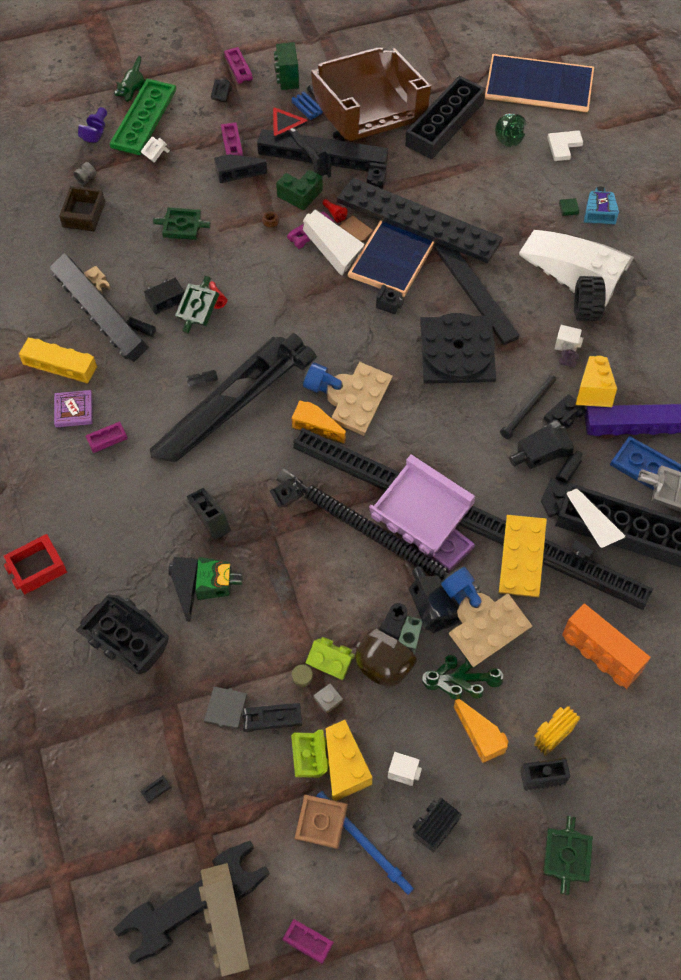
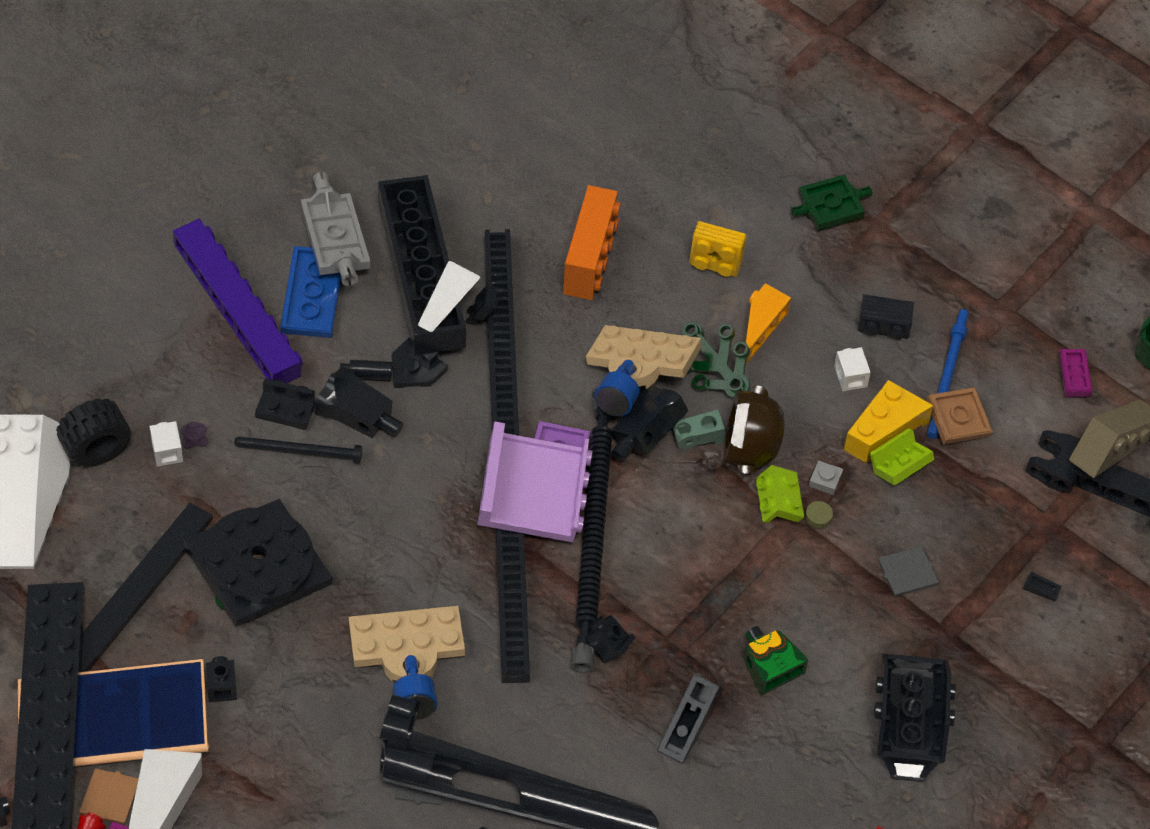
camera: 125 degrees left, 5 degrees down
(184, 578) = (795, 691): black slope -> none
(272, 717) = (887, 516): black plate -> none
(317, 421) = (479, 671): light orange slope -> none
(393, 625) = (700, 451): black piece -> none
(522, 556) = (527, 361): yellow plate -> none
(545, 773) = (768, 244): black brick -> none
(598, 384) = (231, 374): yellow wedge -> none

